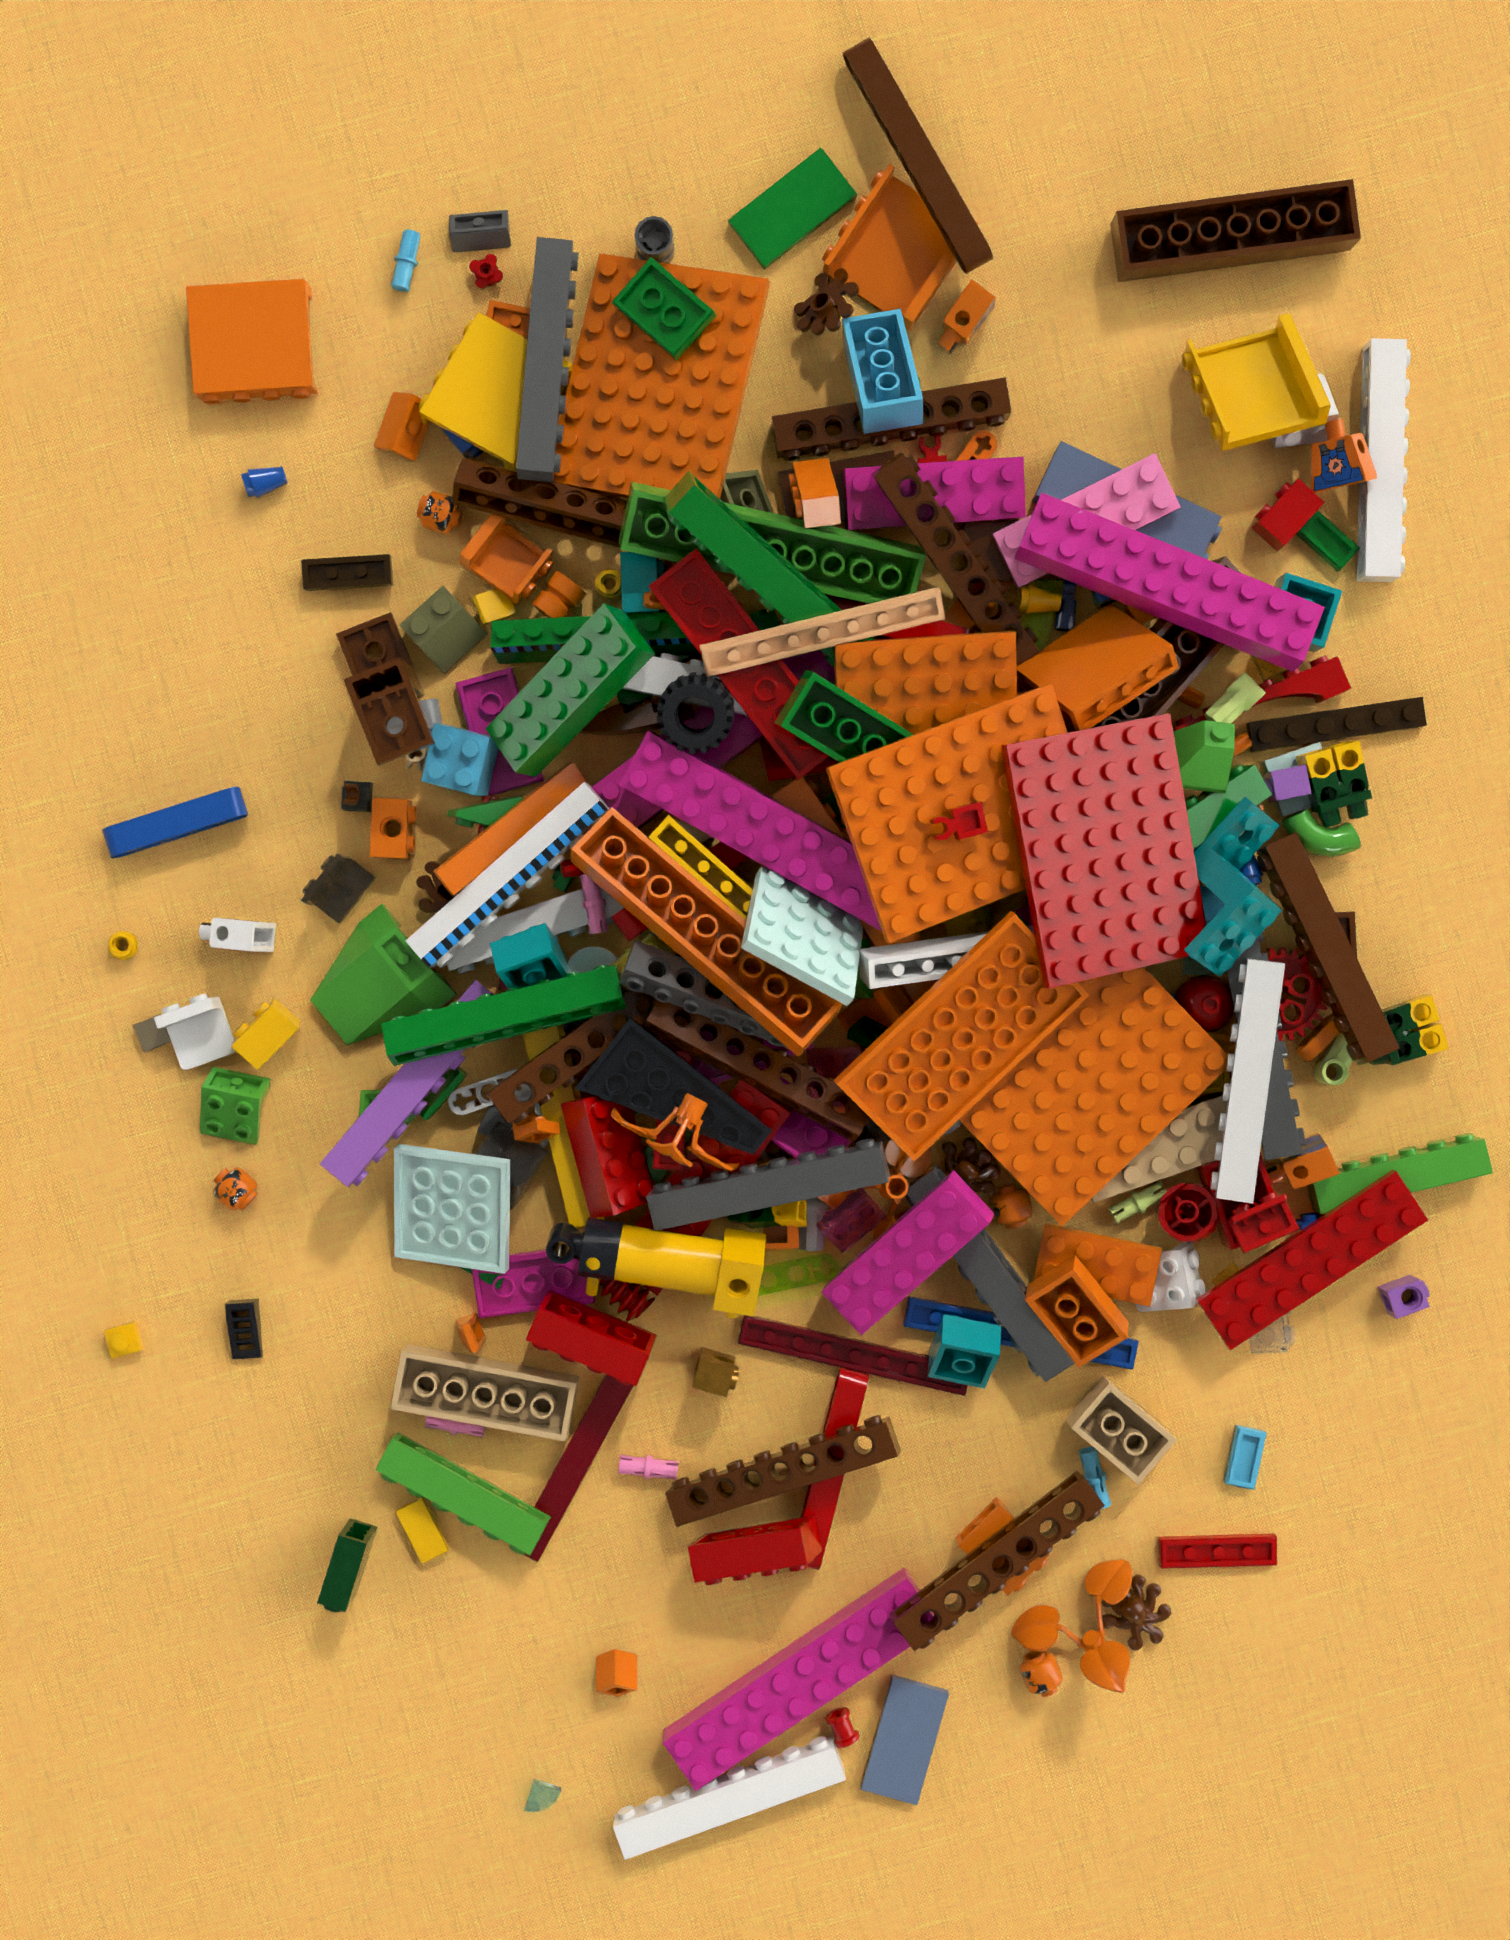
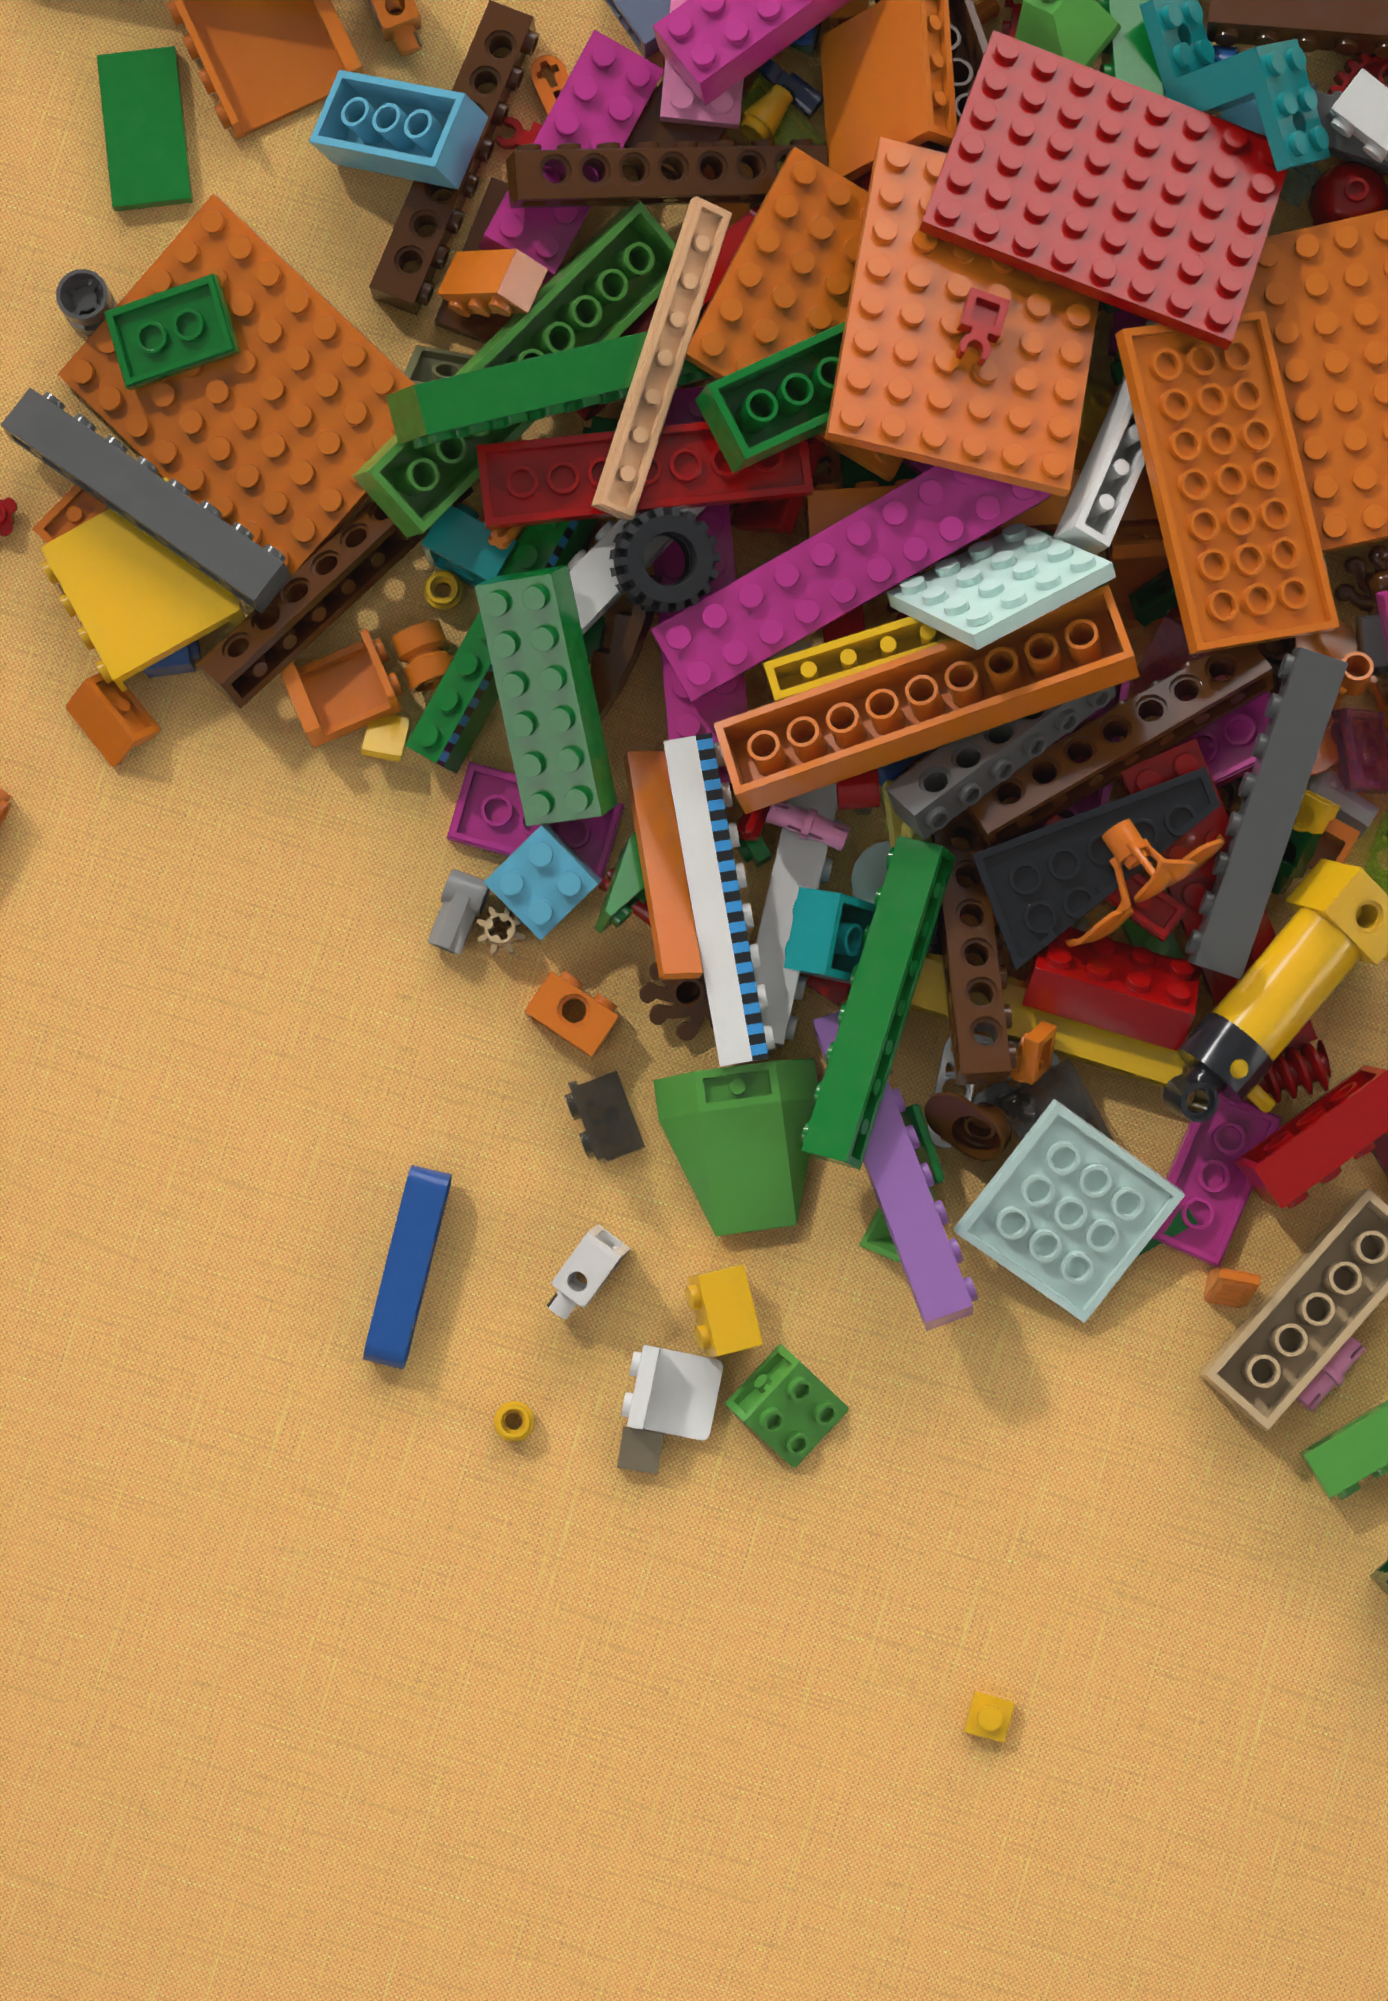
camera: 60 degrees left, 5 degrees down
(231, 1310) = (1033, 1545): black slope -> none
(235, 1188) = (887, 1464): orange head -> none
(263, 480) = (73, 917): blue cone -> none
(347, 572) = (240, 884): dark brown plate -> none
(357, 796) = (509, 1034): pearl dark grey piece -> none
(385, 689) = (409, 912): reddish brown bracket -> none
(439, 513) = (239, 735): orange head -> none
(443, 629) = (377, 812): olive slope -> none
(468, 1121) = (973, 1129): none -> reddish brown cap
(827, 304) = (278, 151): reddish brown animal -> none

